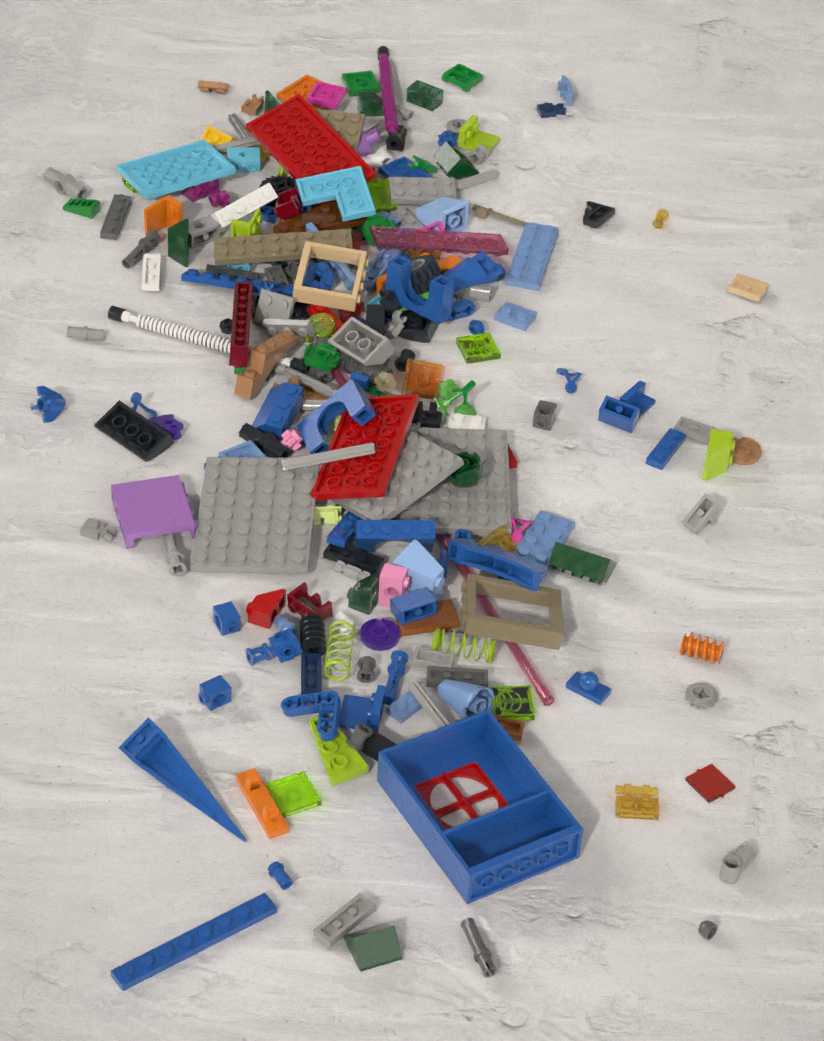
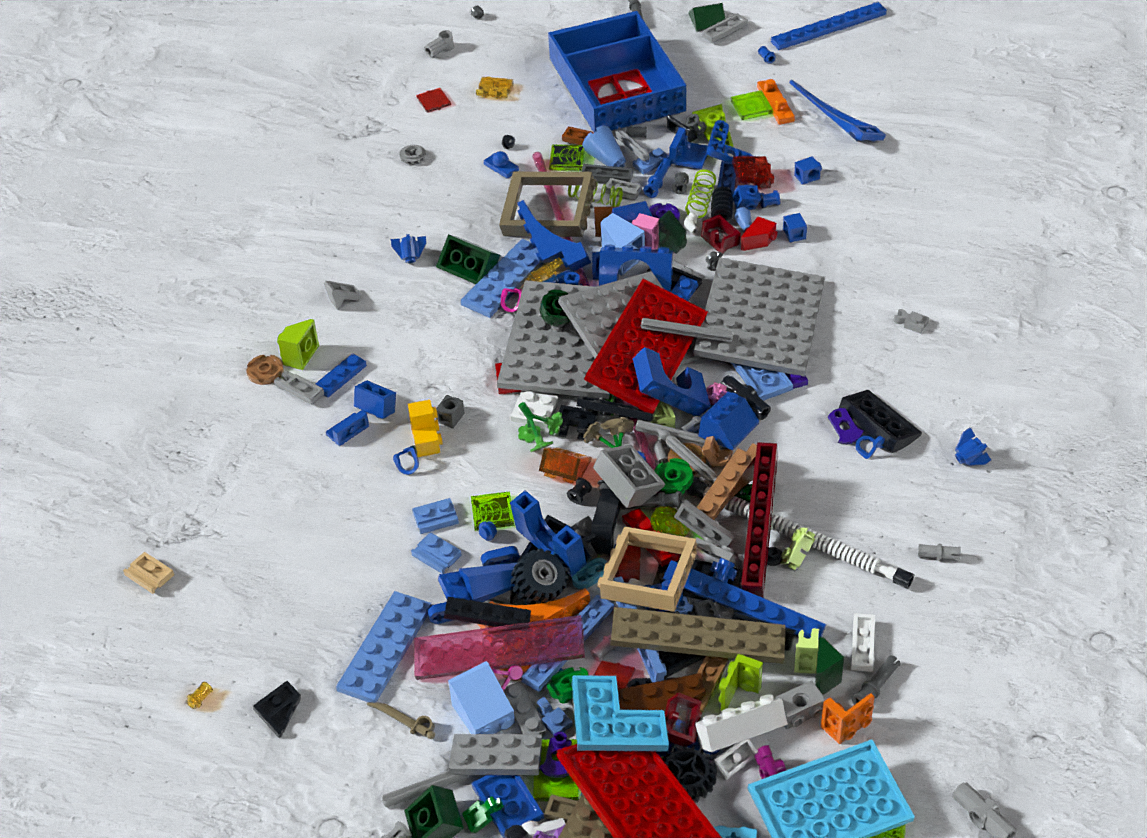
camera: 165 degrees left, 5 degrees up
(83, 207) = (961, 765): green slope -> none
(115, 217) = (911, 751): dark grey plate -> none
(152, 508) = (858, 325): medium lavender panel -> none
(174, 556) = (839, 284): light grey pin -> none
(196, 250) = (806, 653): none -> yellowish green hinge
(207, 321) = (800, 541): none -> yellowish green hinge
(280, 679) = (753, 170): none -> clear red plate
(313, 576) = (712, 259): none -> dark grey plate
(378, 194) = (555, 768): none -> dark purple piece
(456, 248) = (484, 613): none -> black plate
(526, 341) = (435, 516): none -> medium blue plate
(563, 391) = (425, 428): none -> yellow brick
(593, 718) = (508, 141): none -> black hinge
(651, 565) = (409, 248): none -> blue brick
(702, 648) = (396, 181): orange piece -> none

